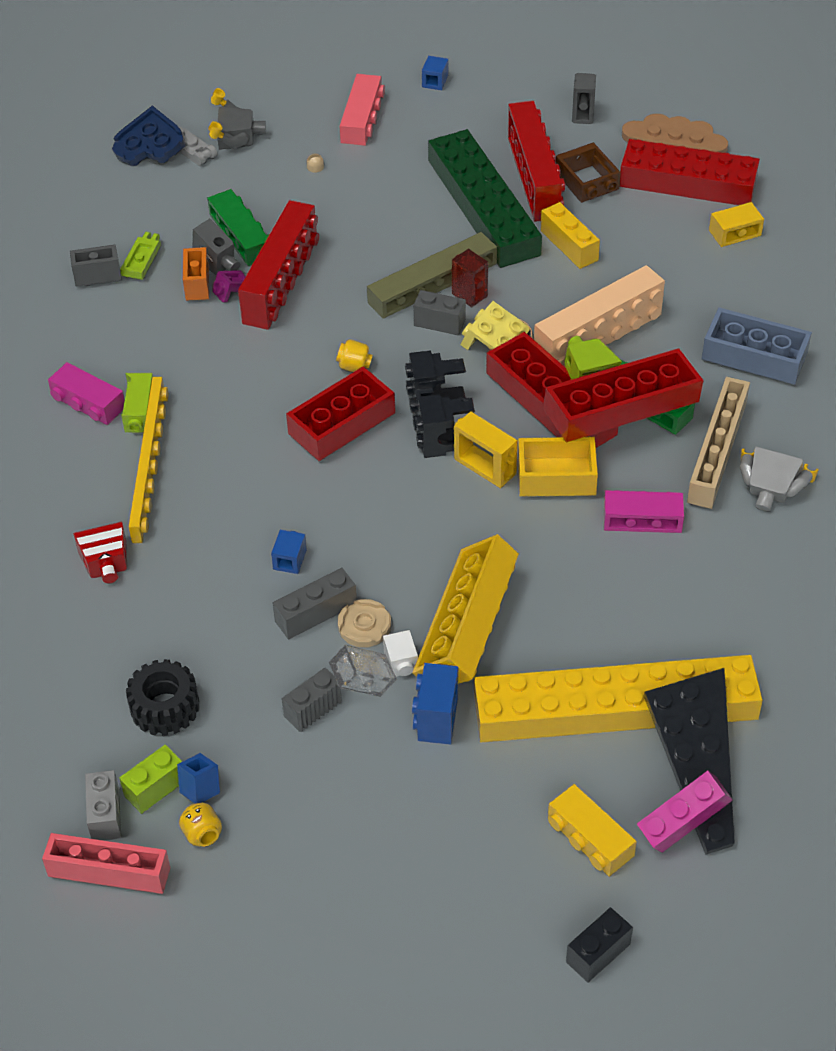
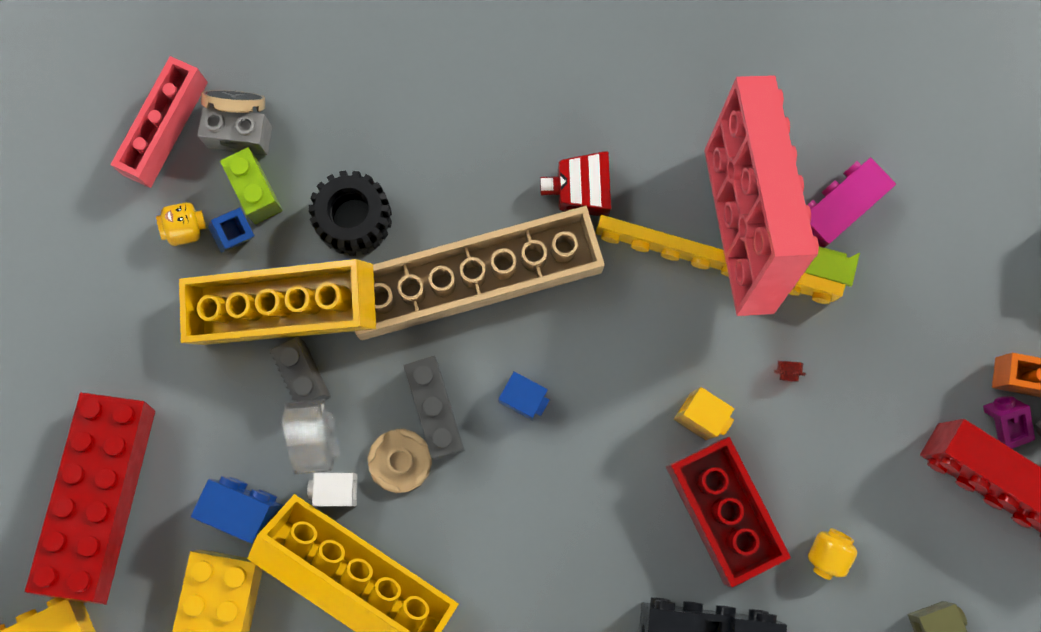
camera: 100 degrees right, 30 degrees up
(73, 808) = (233, 101): none -> tan tile
(100, 412) = (759, 197): none -> coral brick
(198, 603) = (484, 270): none -> tan brick
(225, 403) = (789, 370): none -> clear red plate
(257, 711) = (278, 302): none -> yellow brick
(273, 436) = (705, 414): none -> yellow brick
(459, 808) = (91, 499): none -> red brick

